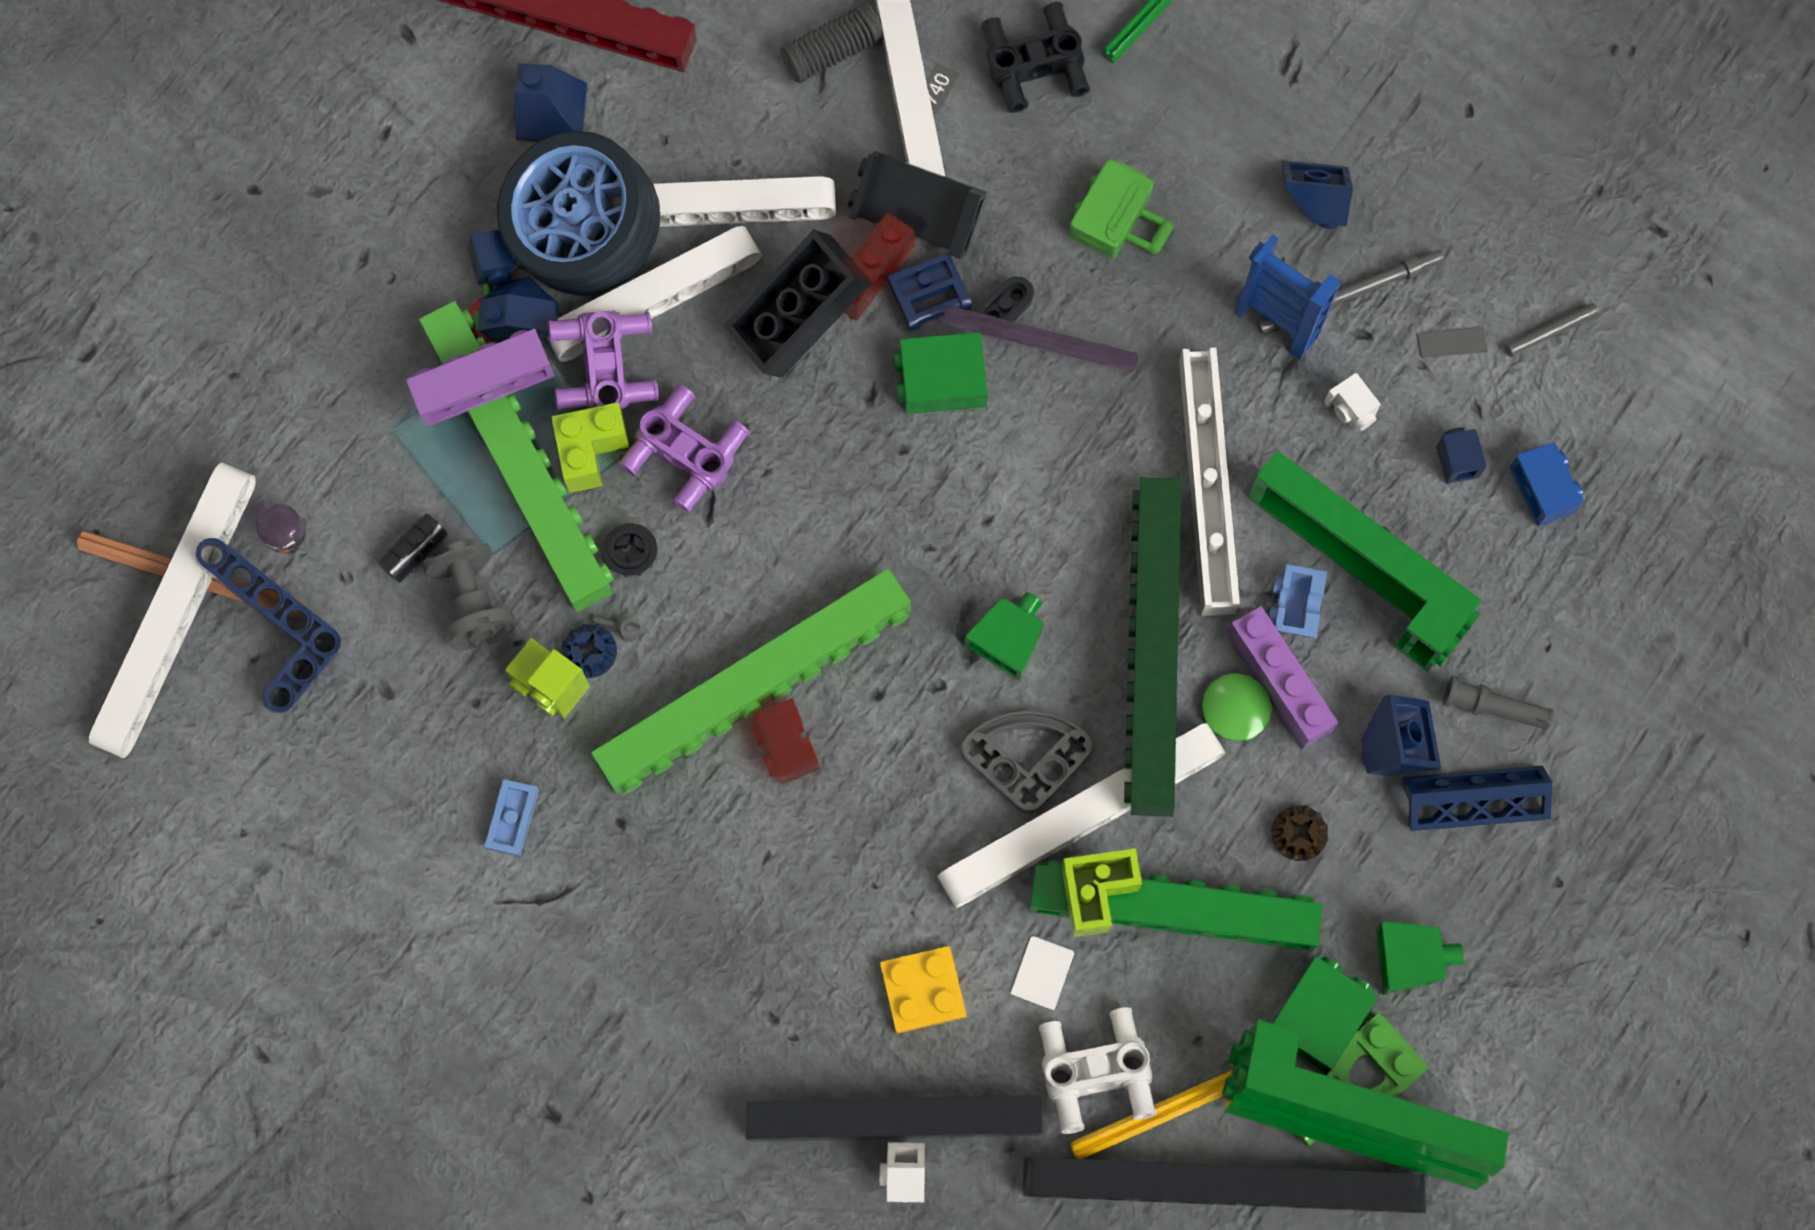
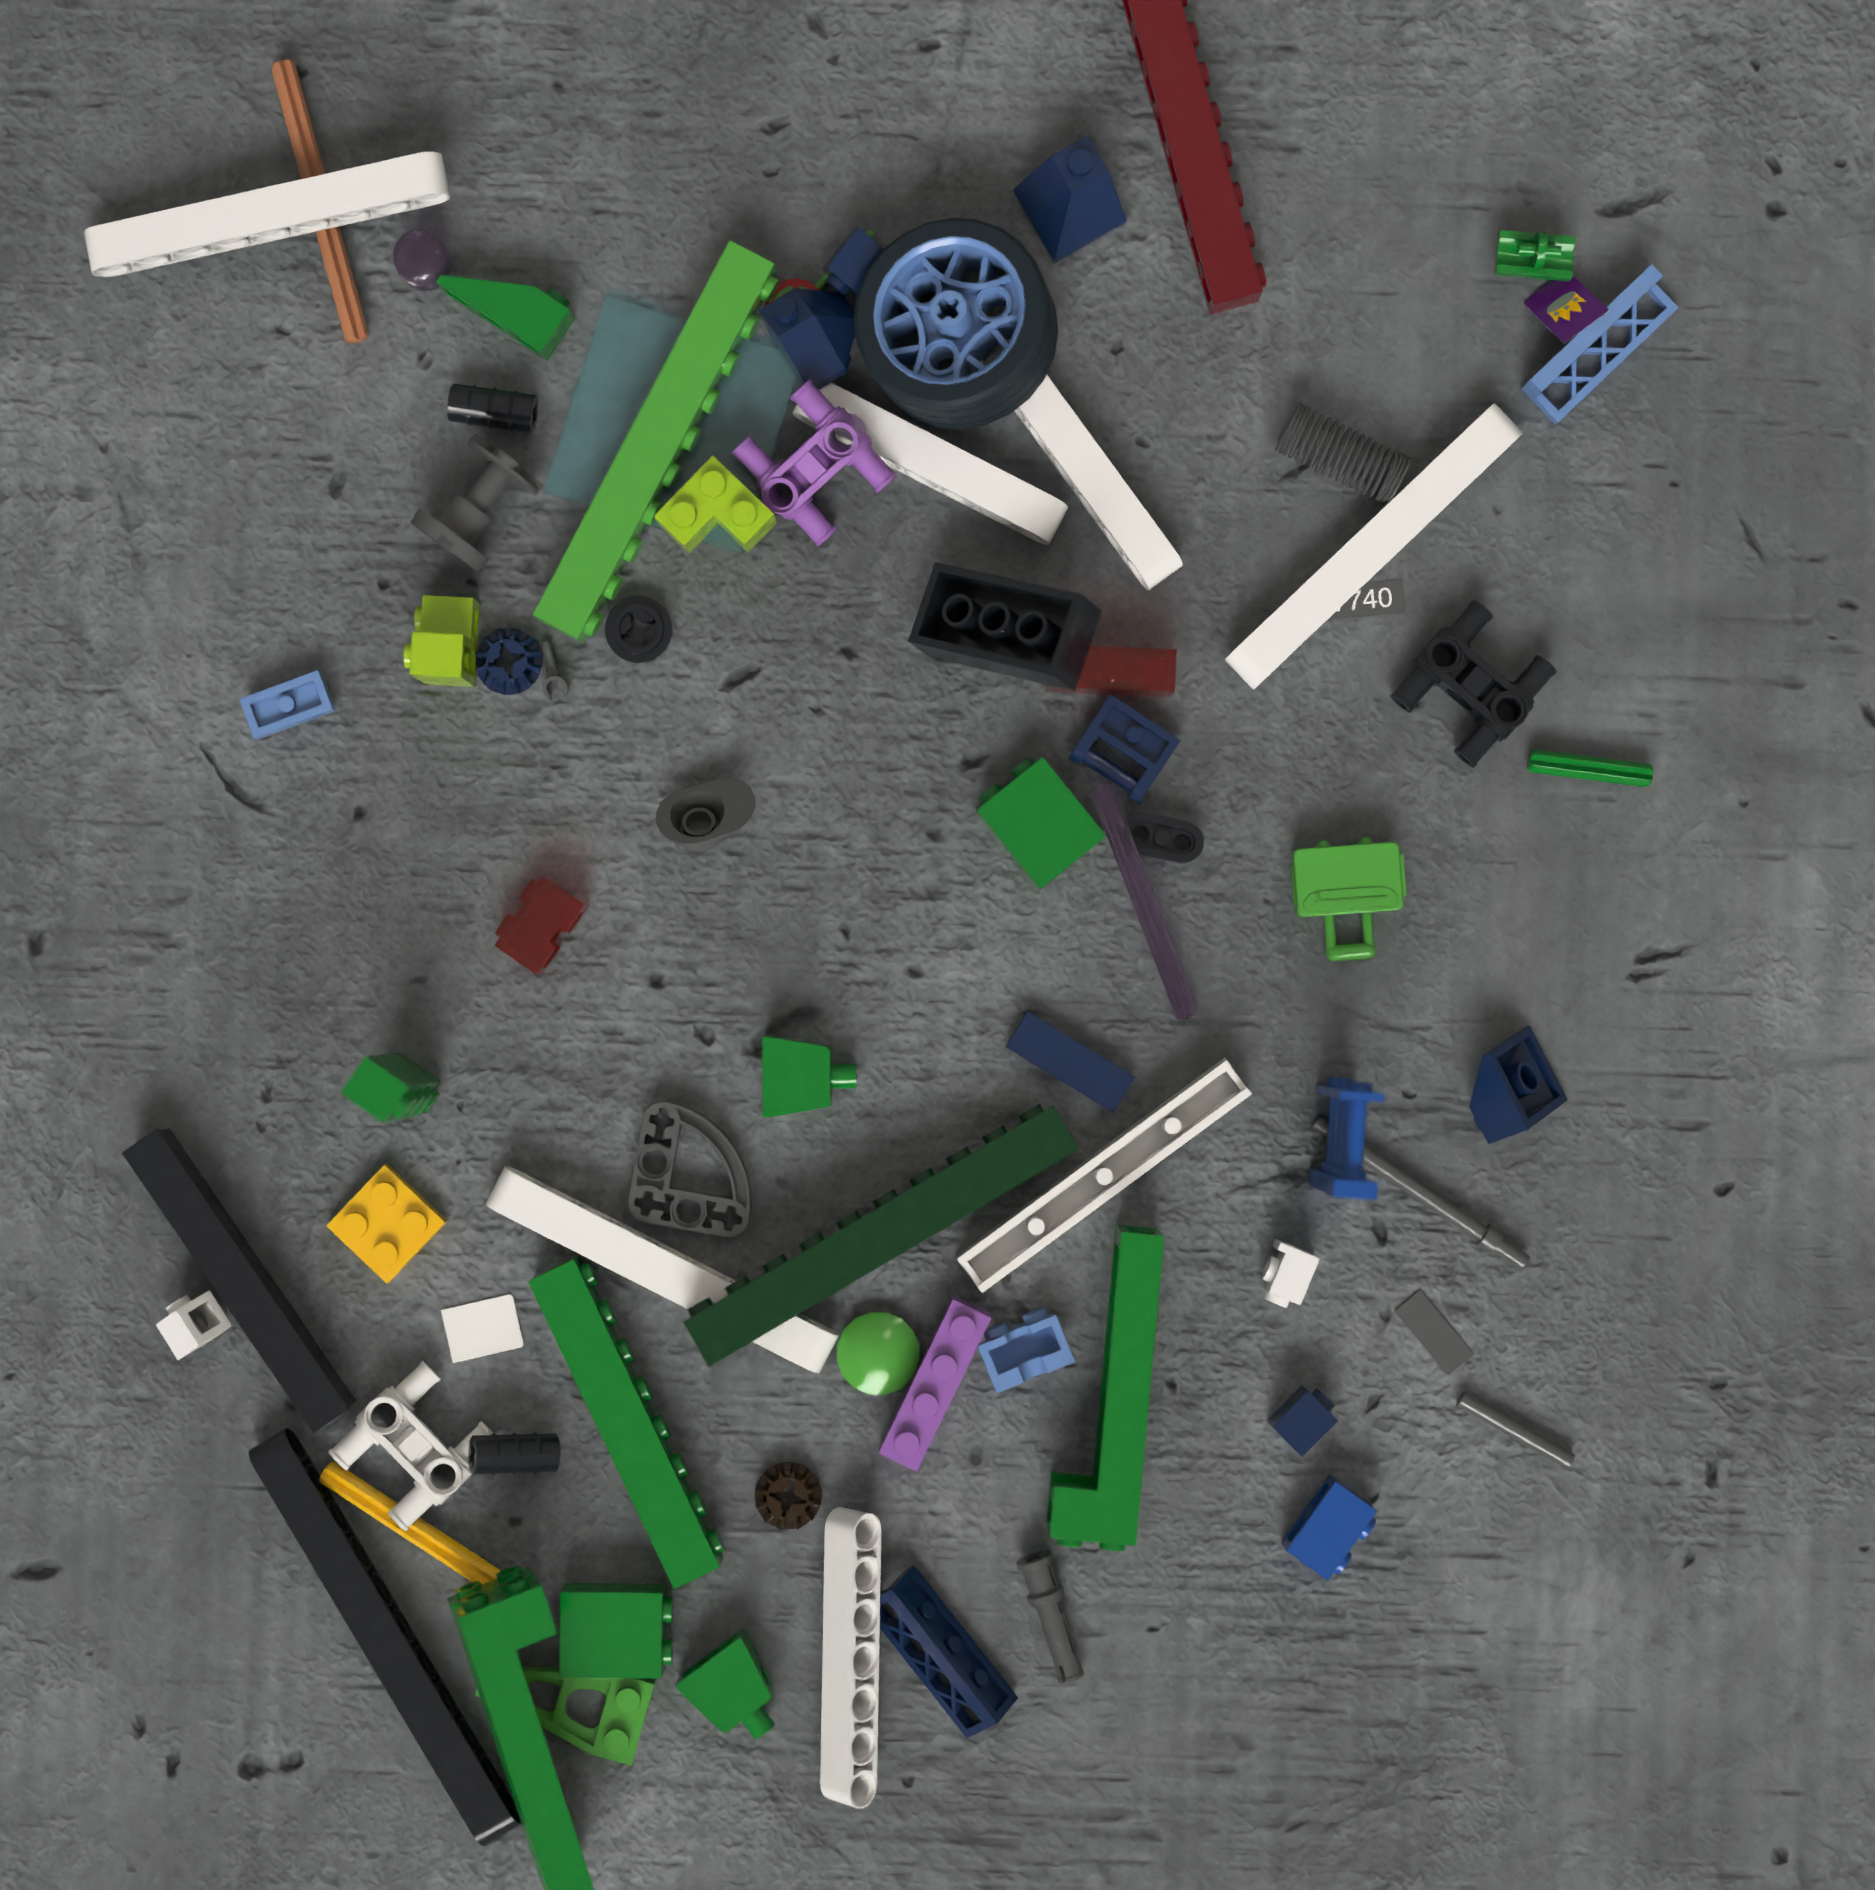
camera: 55 degrees right, 15 degrees up
(276, 616) = (322, 326): dark blue beam -> none
(359, 491) = (518, 310): none -> green slope
(479, 377) = (701, 352): medium lavender brick -> none
(683, 448) = (780, 610): medium lavender piece -> none
(752, 681) = (580, 849): bright green brick -> none
(786, 579) = (705, 813): none -> dark grey piece
(833, 898) = (392, 1087): none -> green brick
(928, 202) = (1214, 671): black panel -> none
(1091, 880) = (579, 1329): lime brick -> none
(1116, 456) = (1070, 1061): none -> dark blue tile
(1148, 999) = (514, 1453): none -> black axle
(1400, 738) = (949, 1541): dark blue slope -> none
(1444, 857) = (850, 1657): none -> white beam

